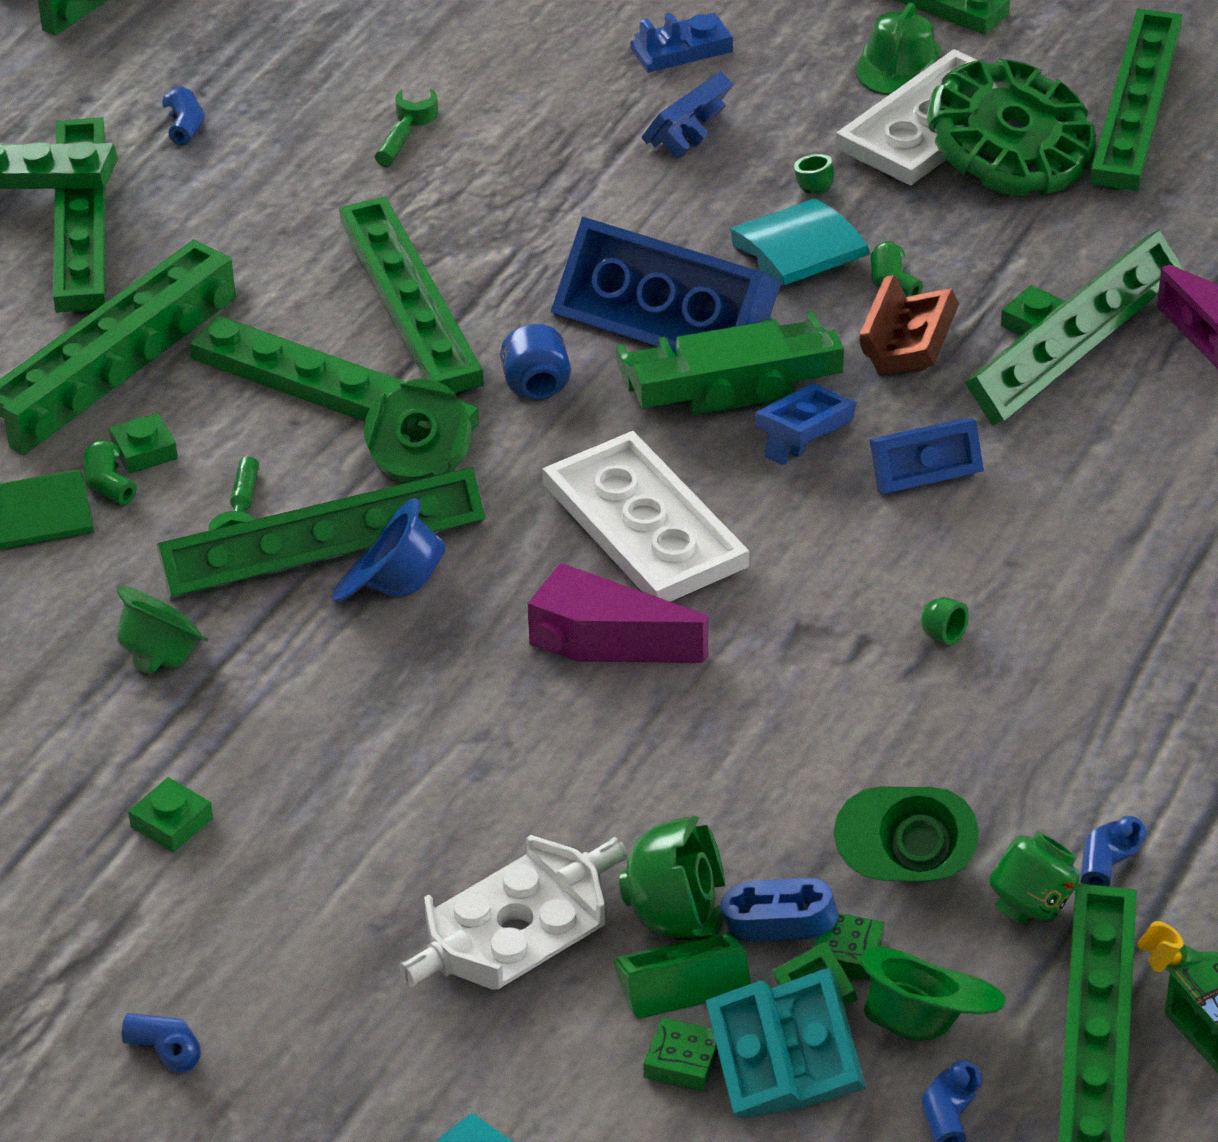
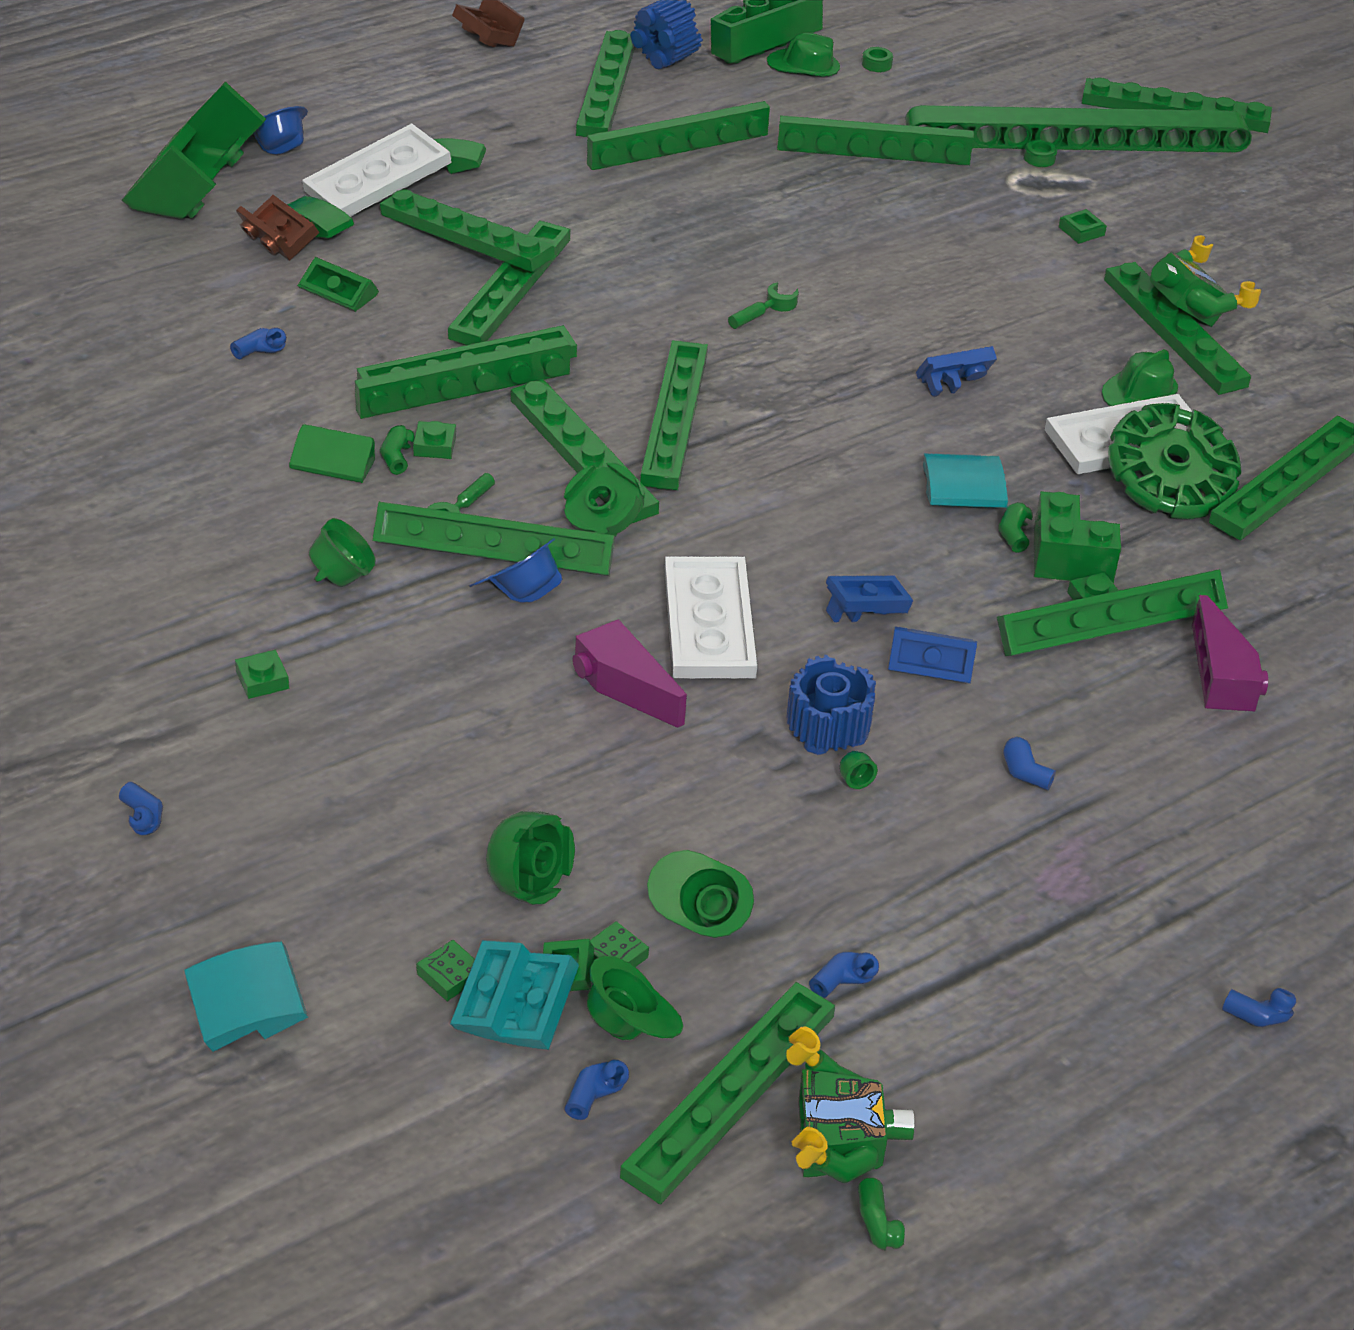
camera: 25 degrees right, 0 degrees up
(188, 114) = (630, 247): blue arm -> none
(535, 361) = (719, 487): blue head -> none
(547, 887) = (377, 832): white plate -> none
(656, 287) = (841, 479): blue slope -> none
(680, 41) = (992, 321): blue plate -> none
(682, 974) = (493, 918): green slope -> none
(732, 365) = (846, 541): green bracket -> none
(779, 909) = (584, 906): blue beam -> none
(814, 173) = (1012, 440): green hinge -> none
(867, 559) = (830, 705): none -> blue brick
(905, 330) = (988, 564): copper bracket -> none
(980, 268) = (1070, 546): none -> green brick
(1034, 878) = (767, 964): green head -> none
(1112, 538) = (1023, 766): none -> blue arm

